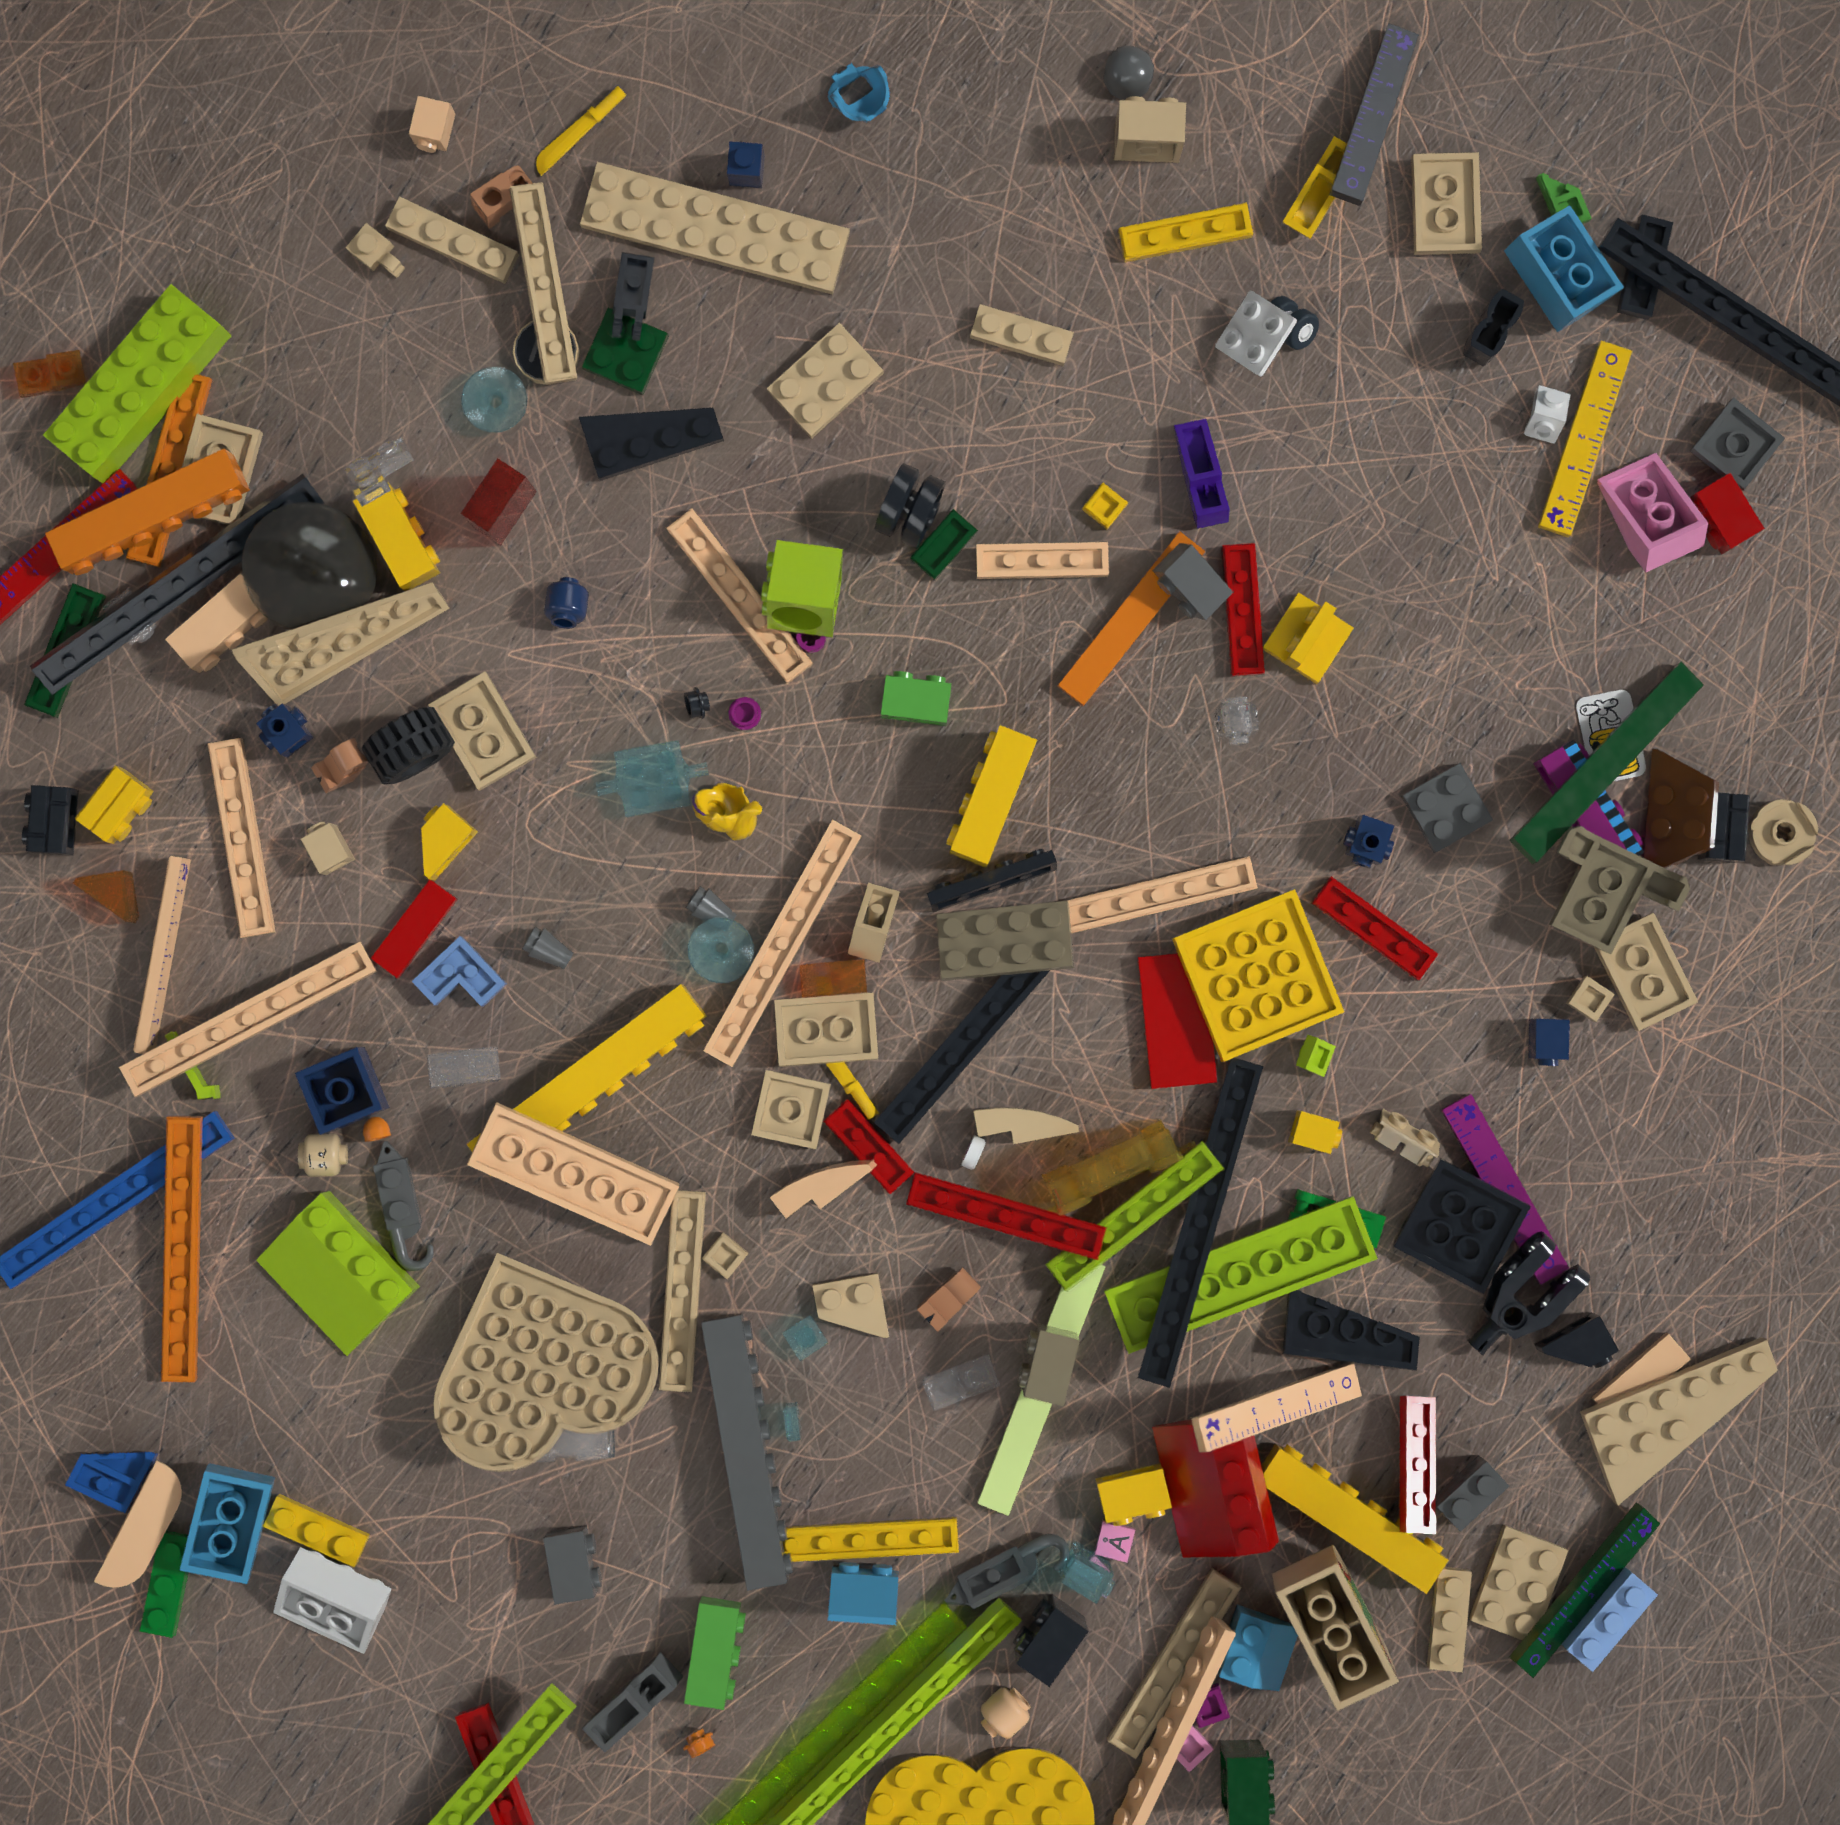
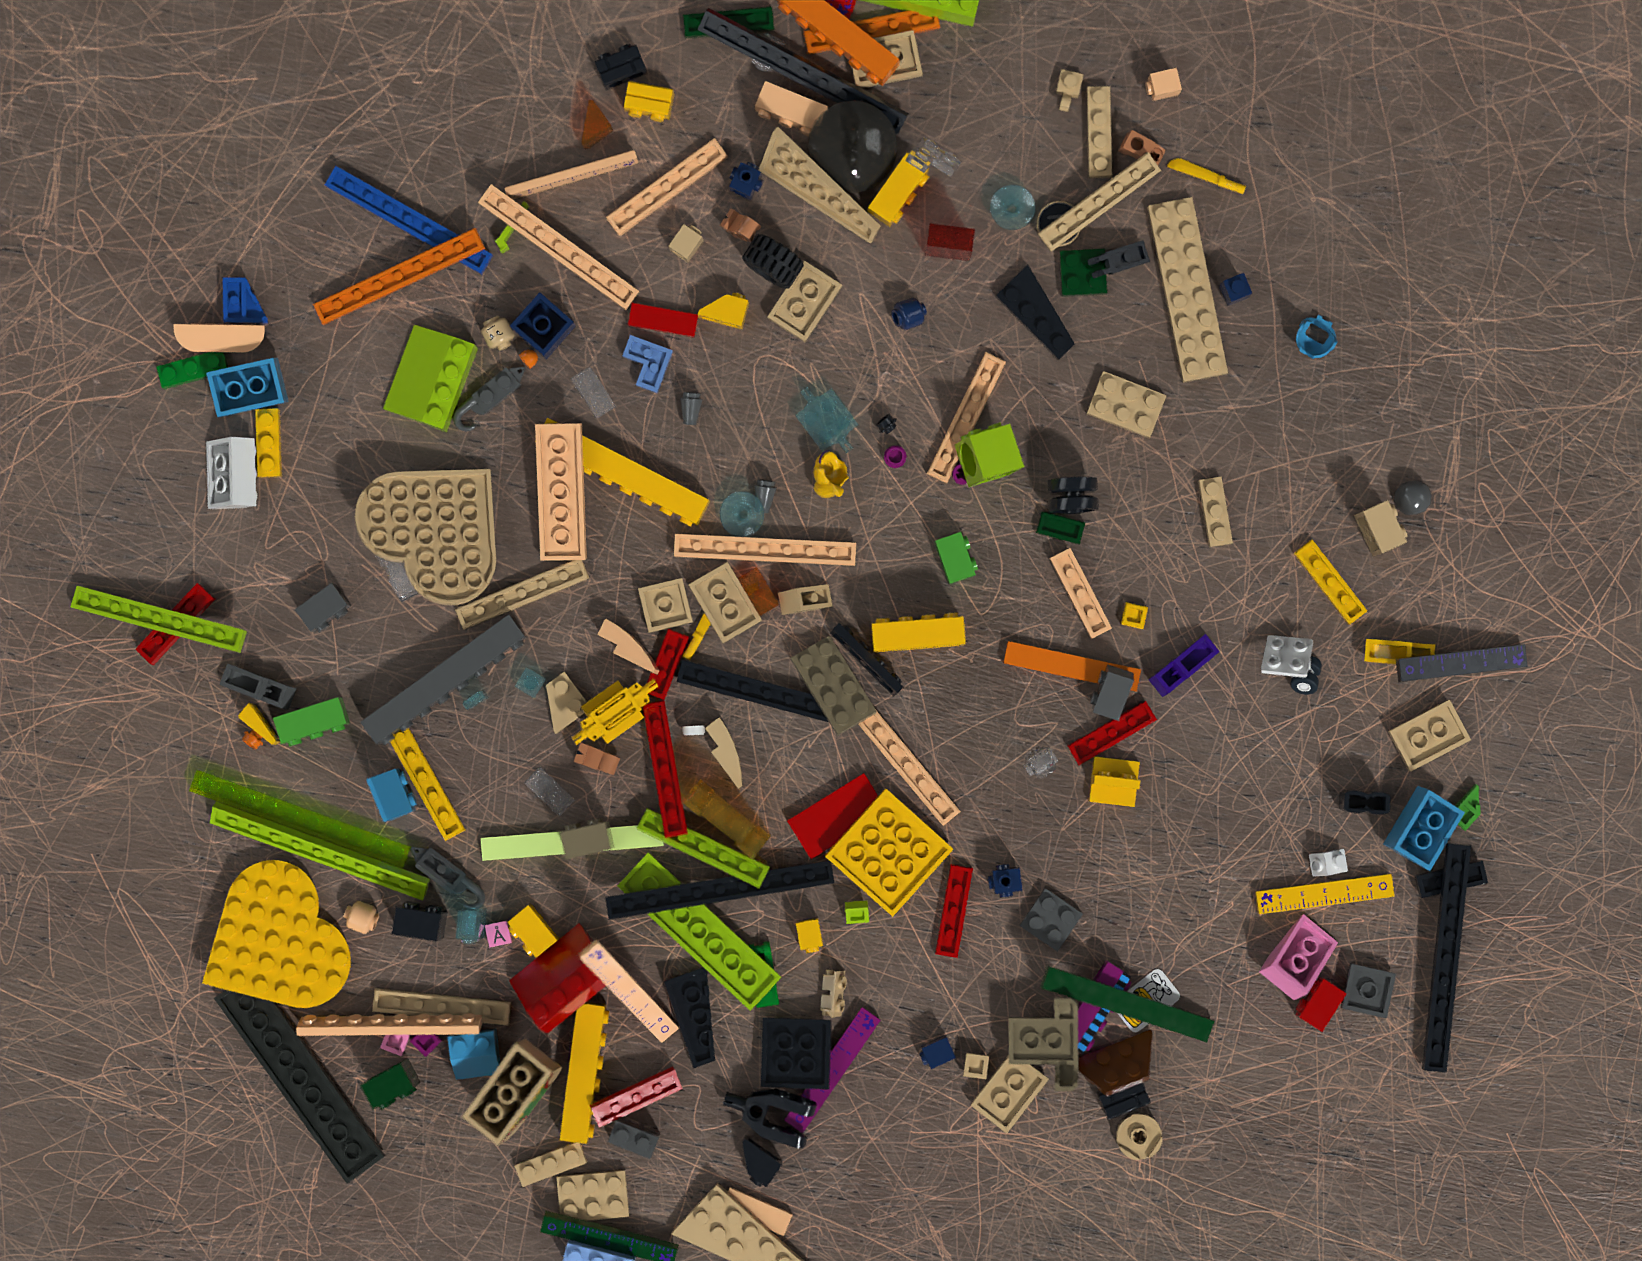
camera: 65 degrees right, 0 degrees up
(675, 1727) = (256, 721): none -> yellow slope
(725, 1255) = (556, 609): tan tile -> none
(897, 1246) = (613, 711): none -> yellow piece

